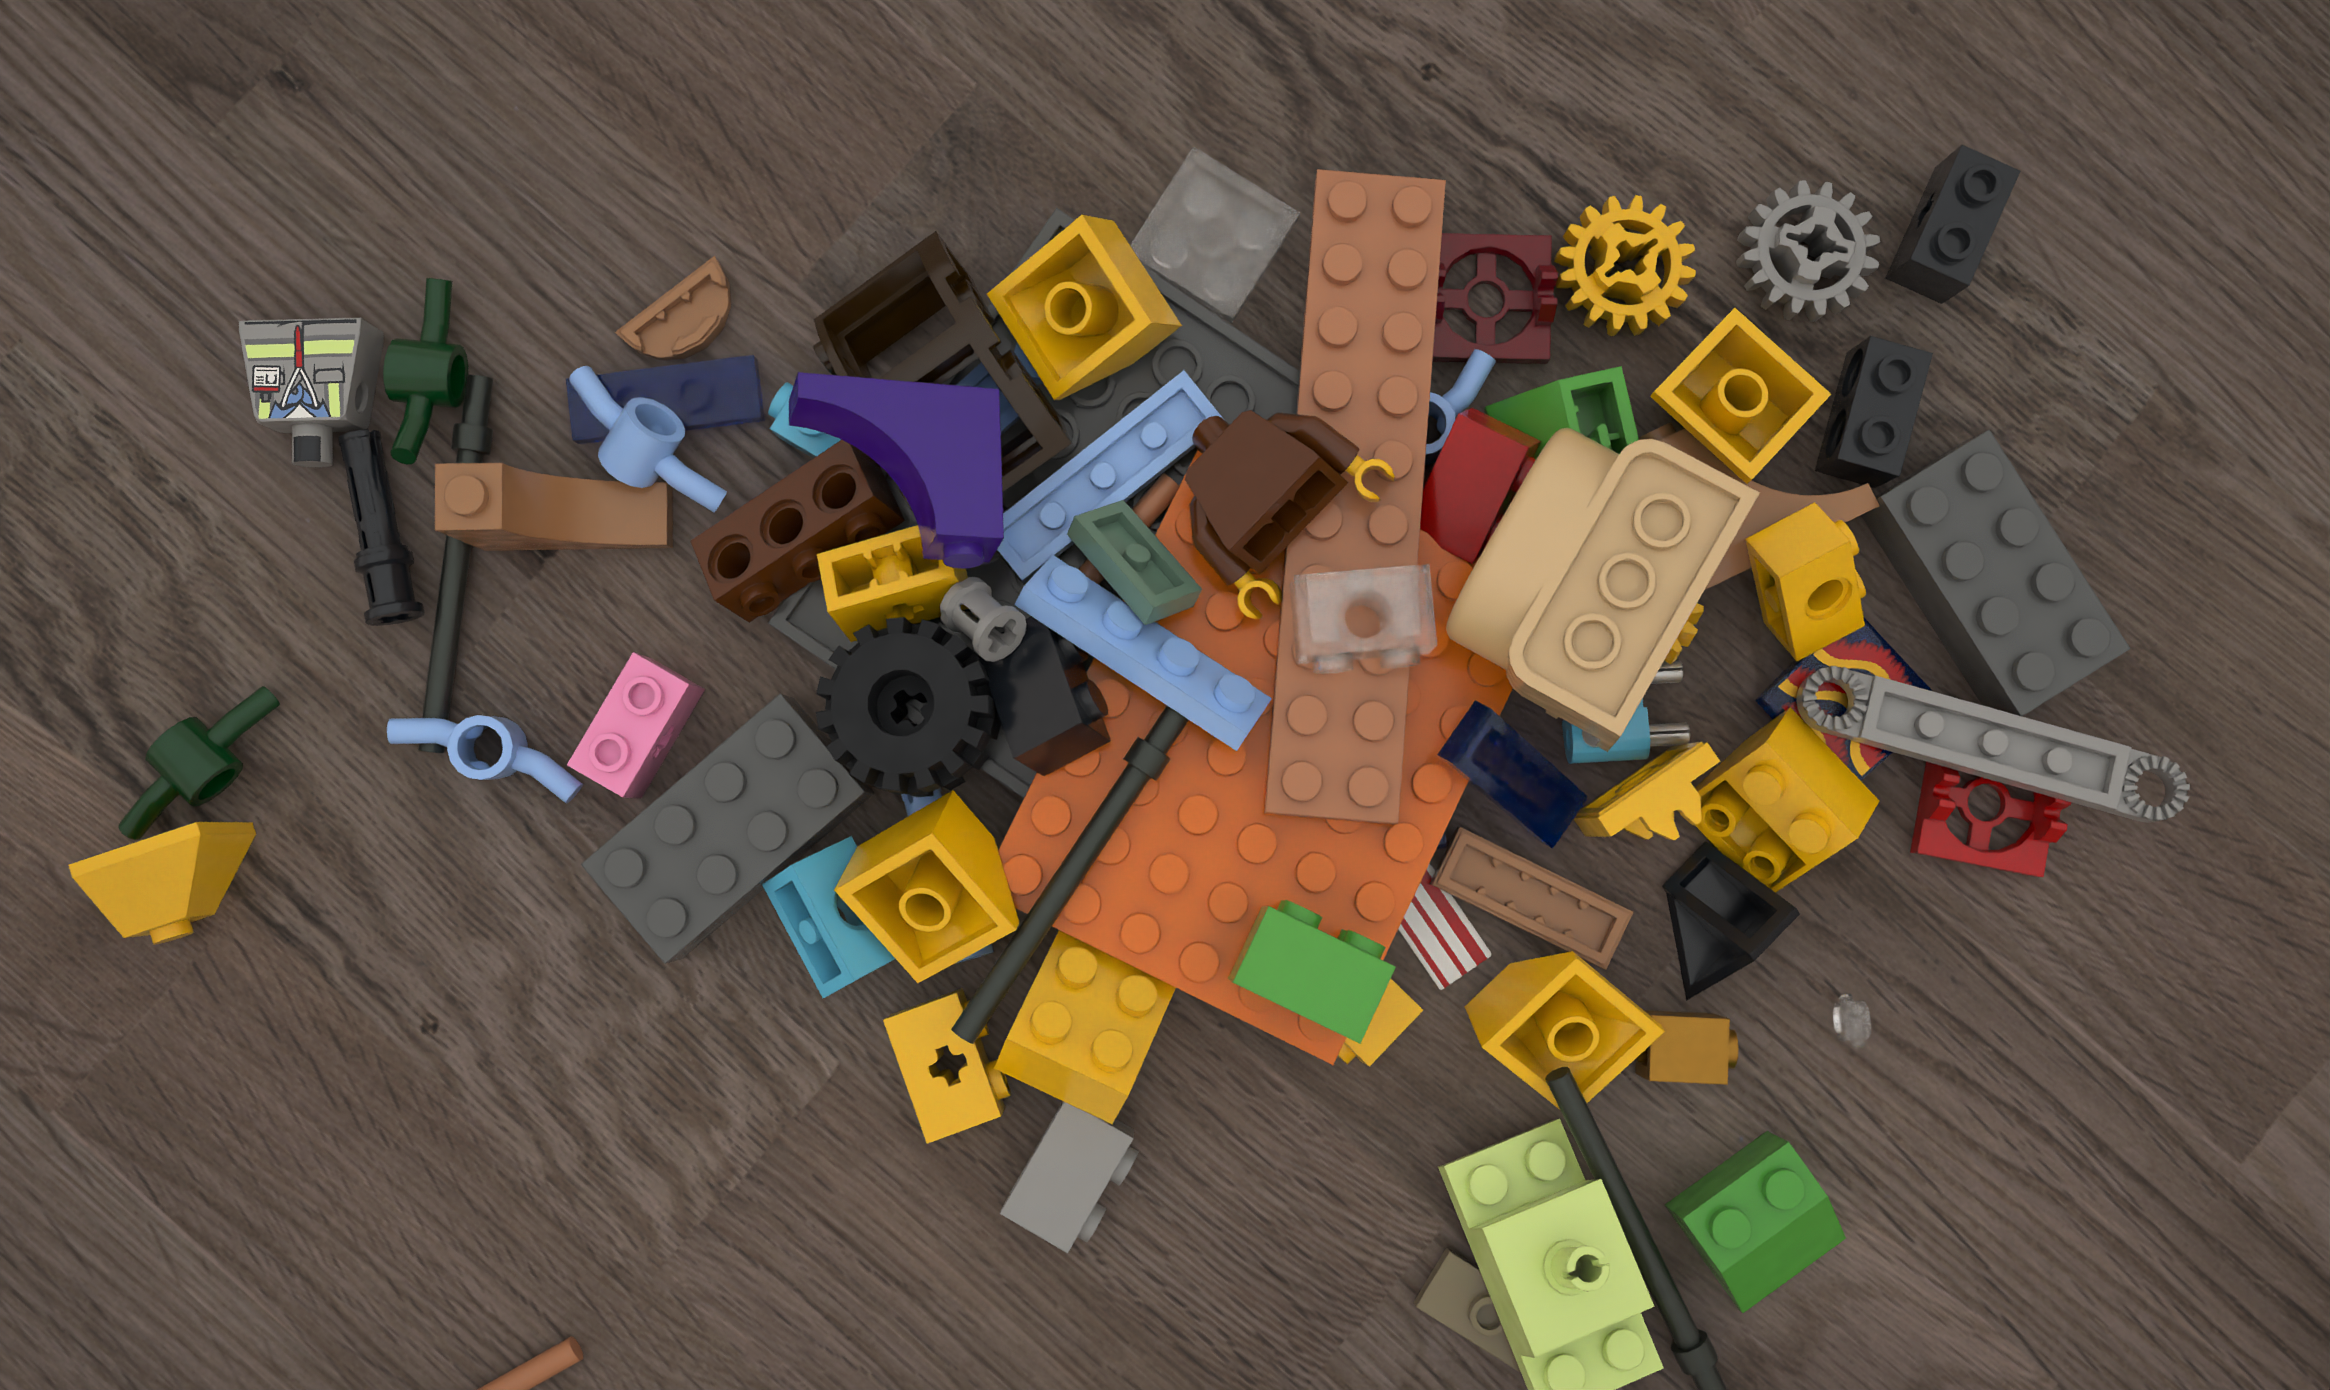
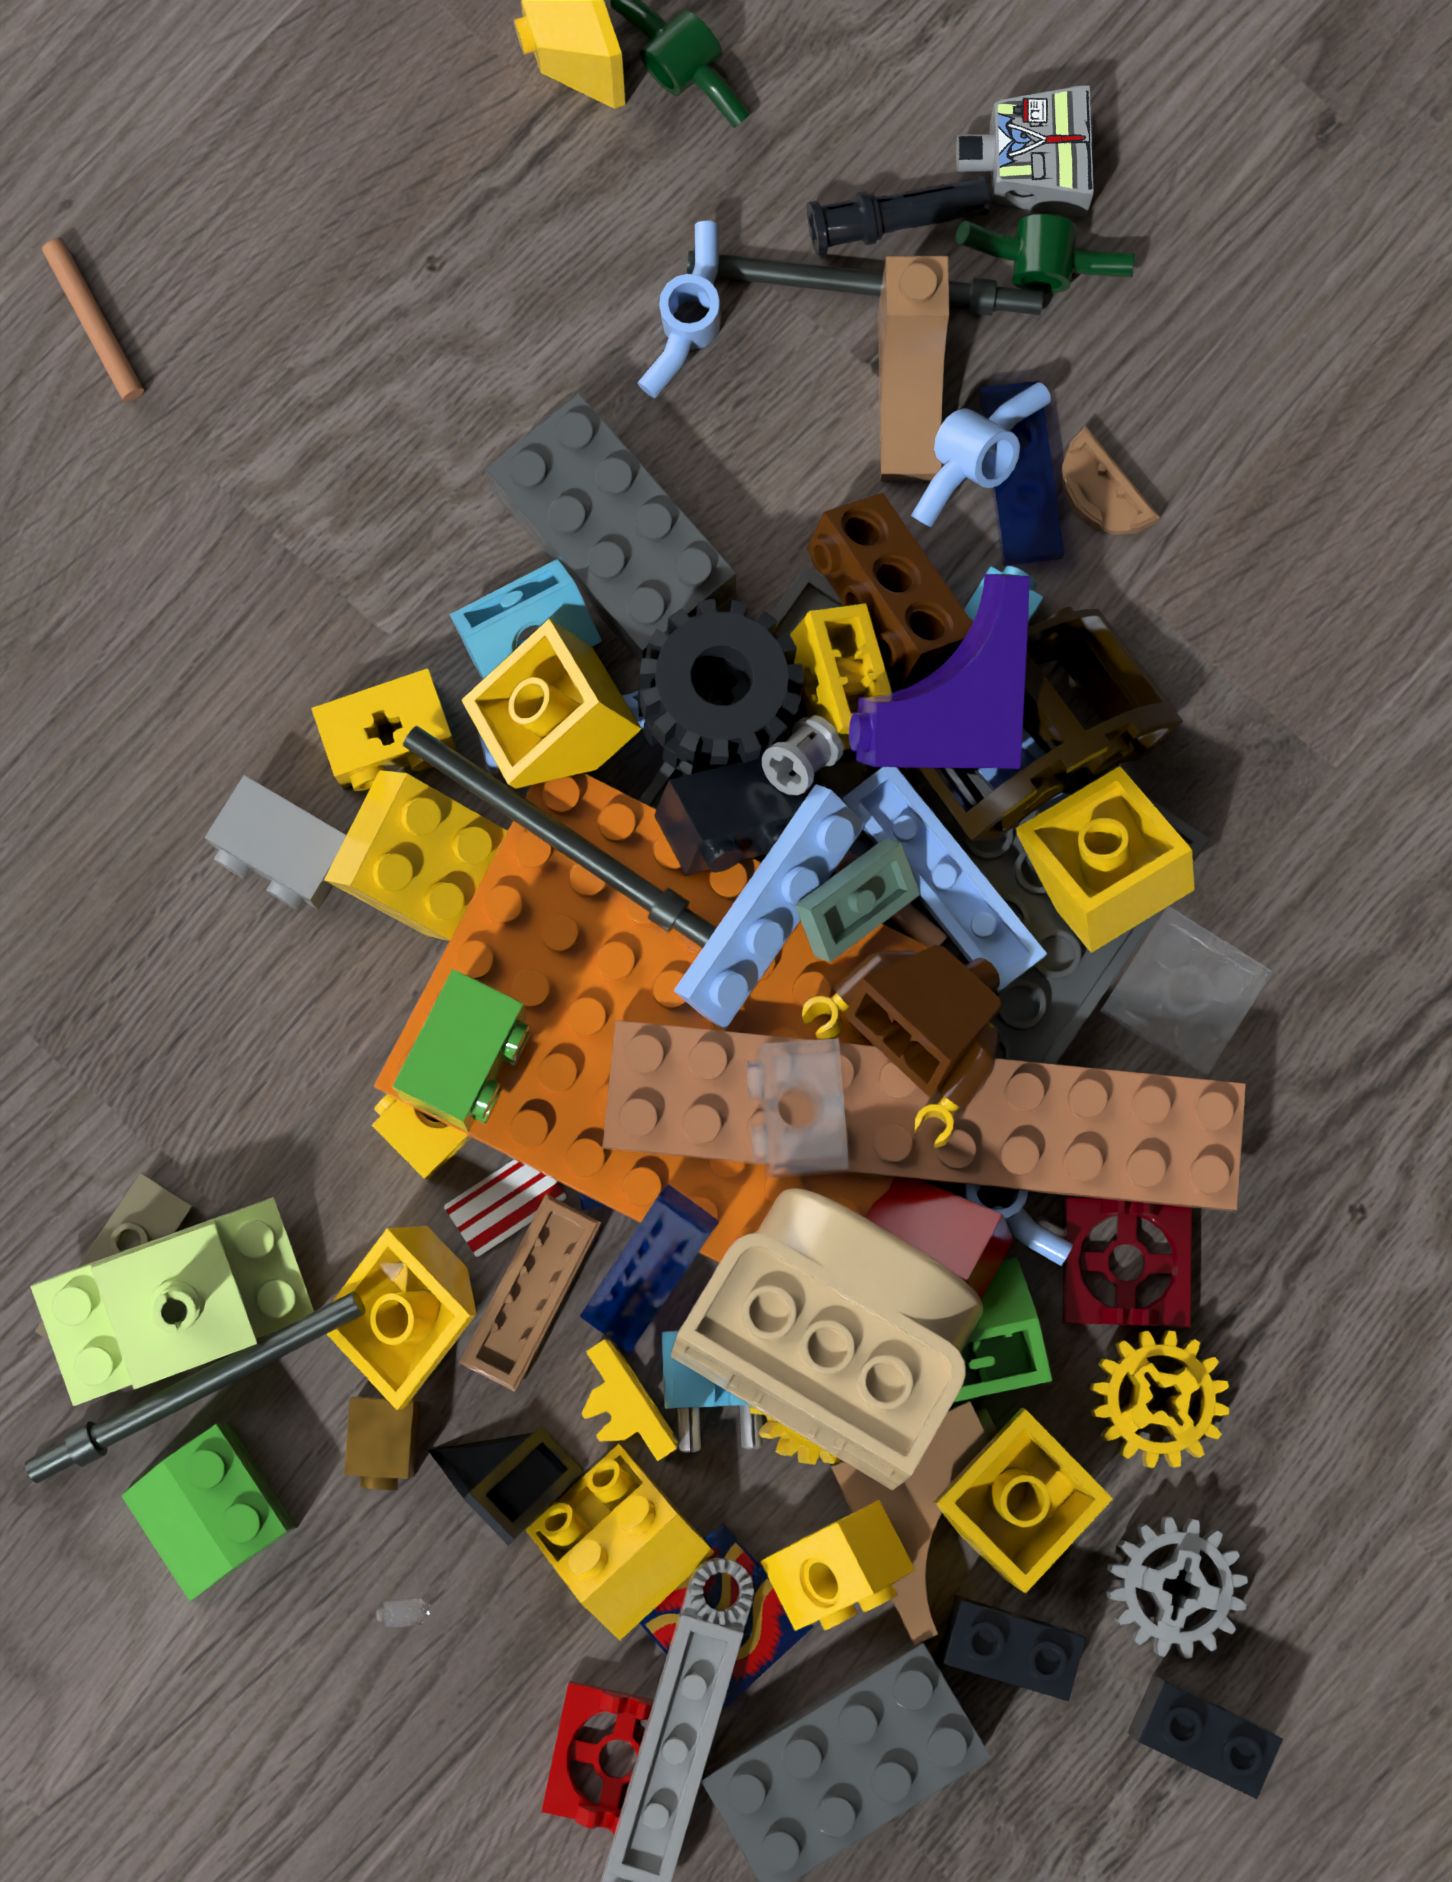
camera: 90 degrees right, 5 degrees down
(636, 727) = (708, 445): bright pink brick -> none

